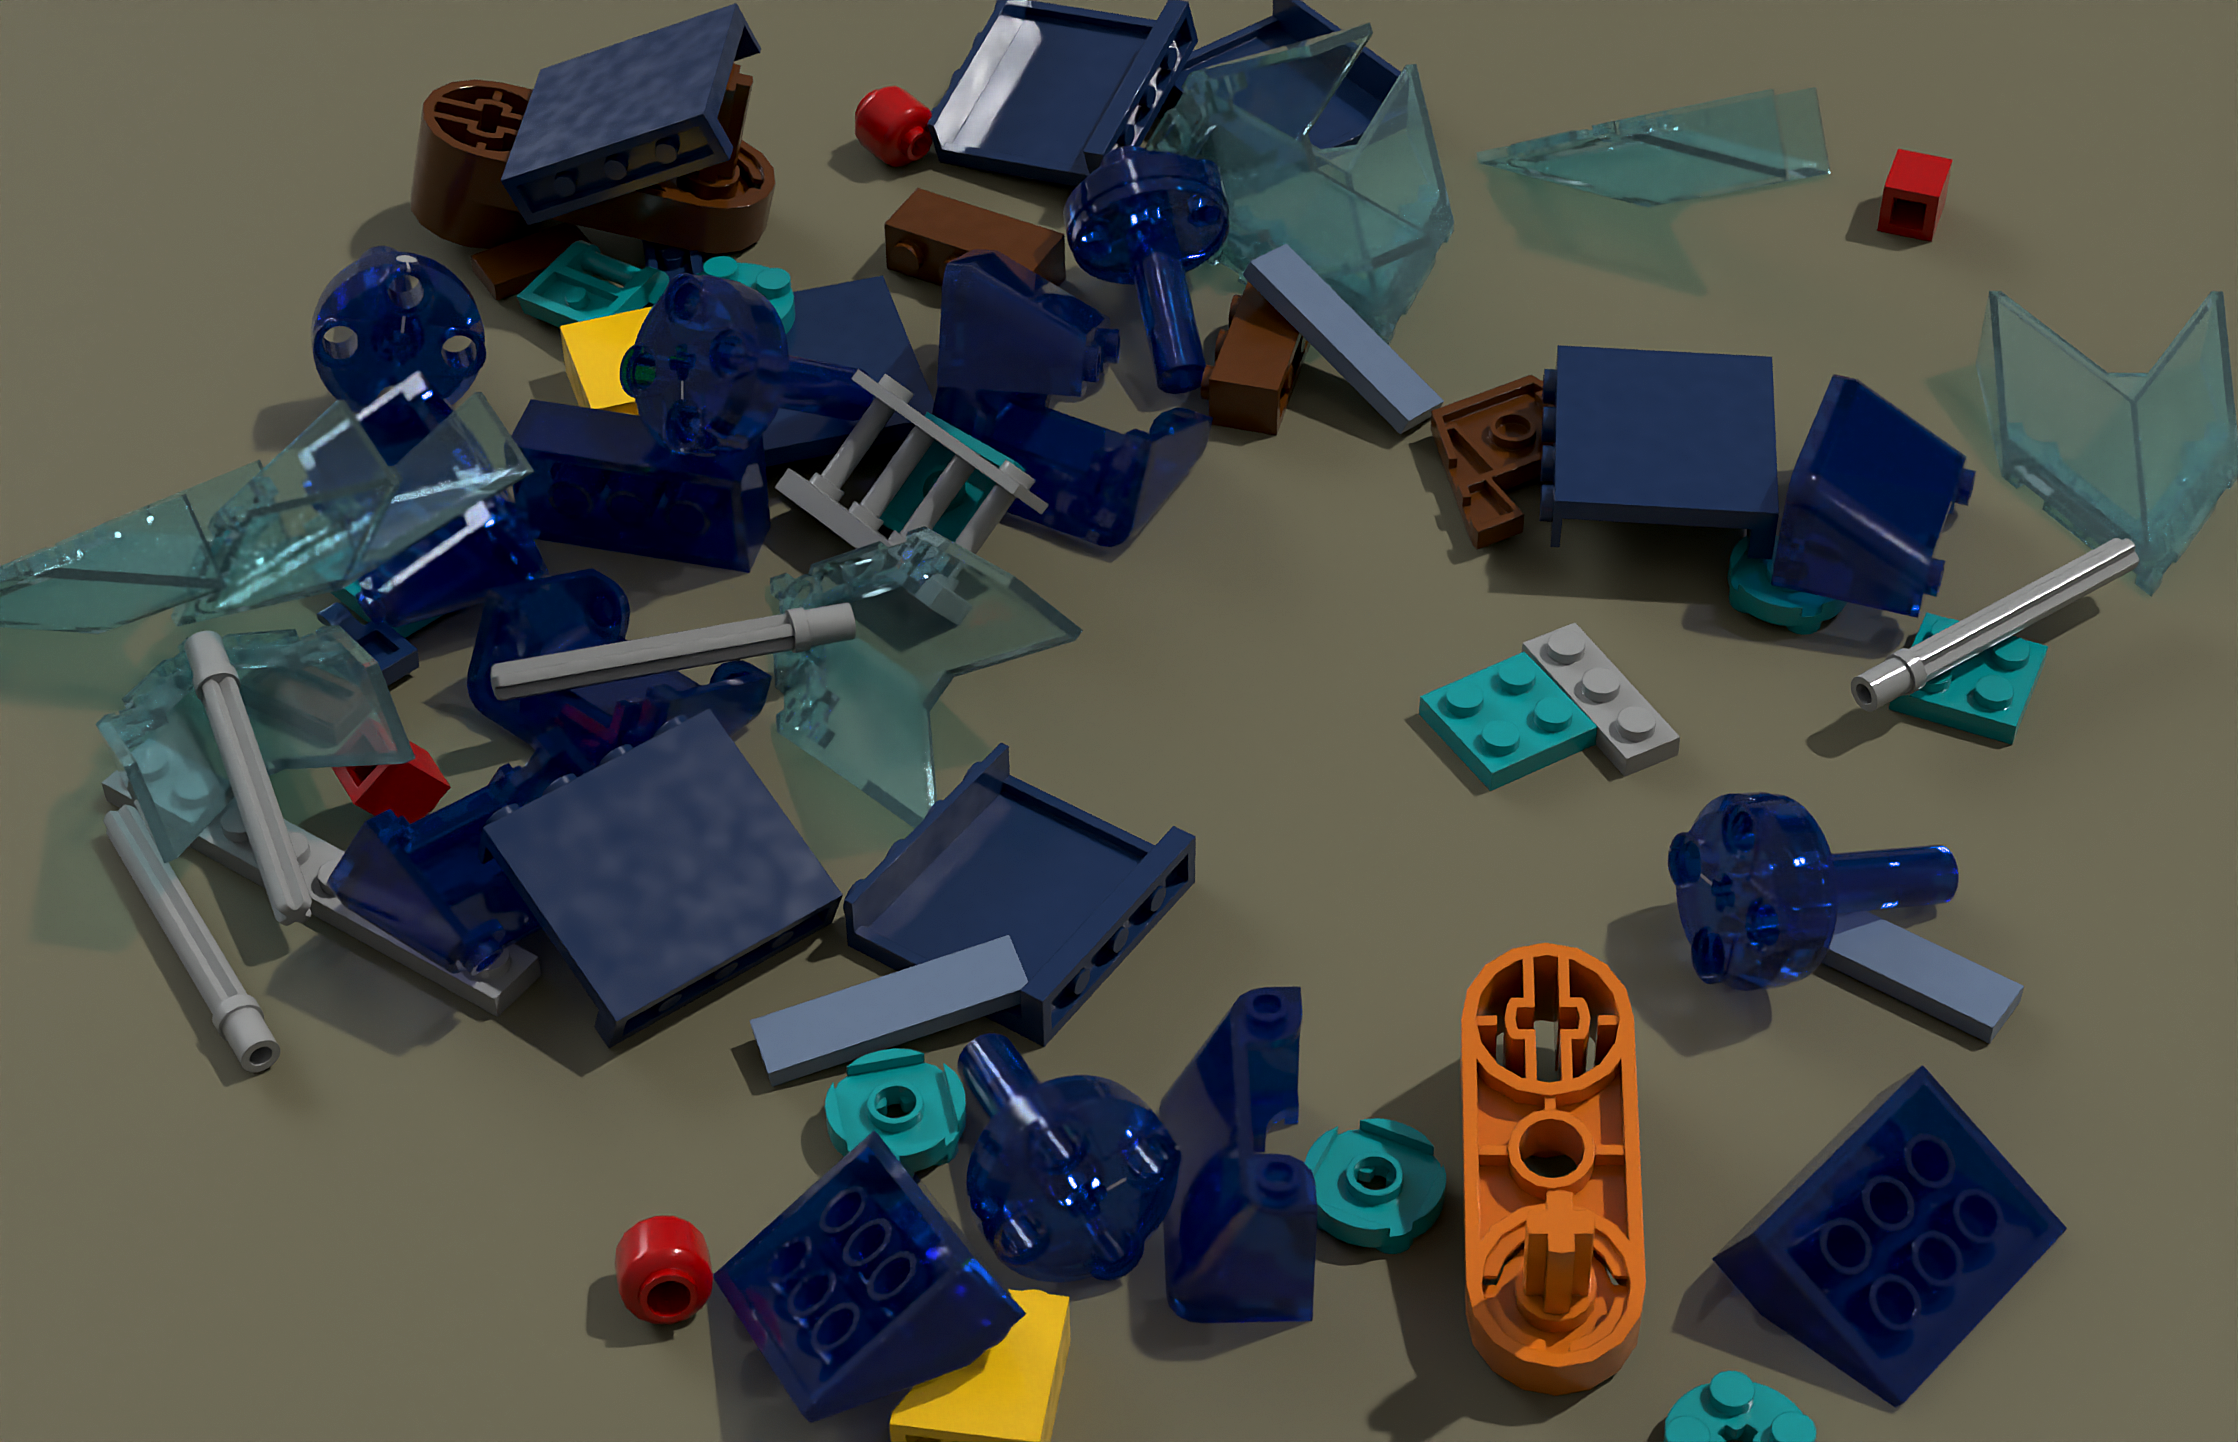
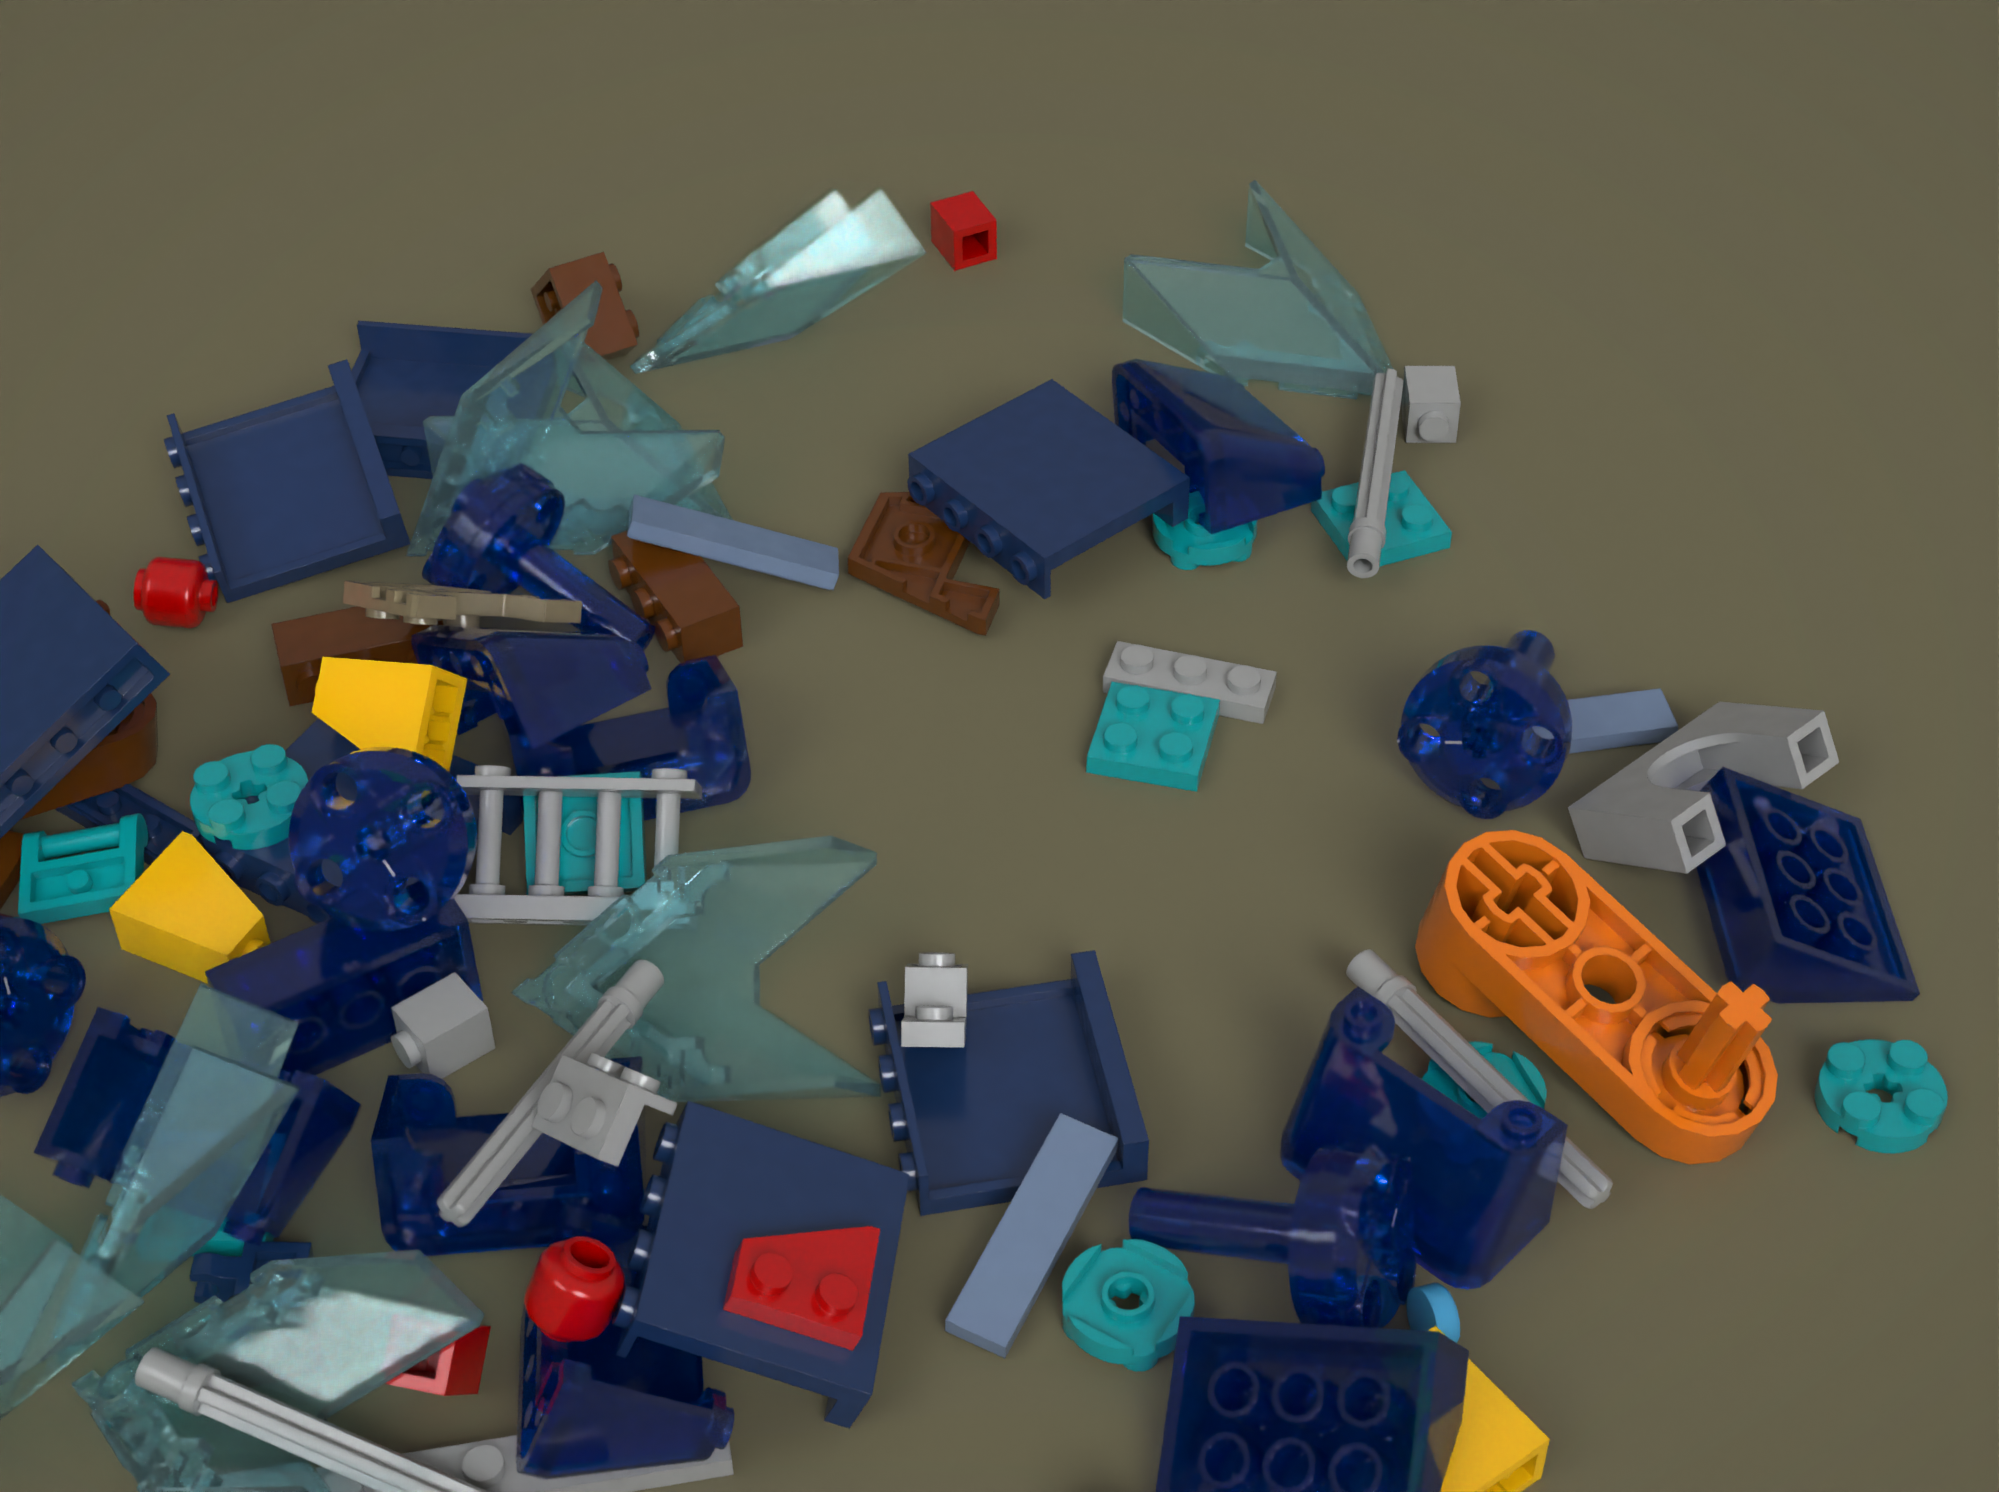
camera: 45 degrees left, 0 degrees up
(483, 779) = (574, 1289): none -> red head
(644, 664) = (596, 1105): none -> light grey bracket
(650, 901) = (806, 1282): none -> red wing
(680, 566) = (442, 1028): none -> light grey brick
(882, 303) = (391, 705): none -> yellow slope
(1034, 794) = (935, 1002): none -> light grey slope
(1040, 244) = (459, 606): none -> dark tan wing
(1099, 1302) = (1433, 1306): none -> dark azure tile
(1390, 1052) = (1466, 1065): none -> light grey axle
(1474, 78) = (614, 327): none -> reddish brown brick
(1995, 1070) = (1654, 806): none -> light grey arch
(2155, 603) = (1430, 404): none -> light grey brick

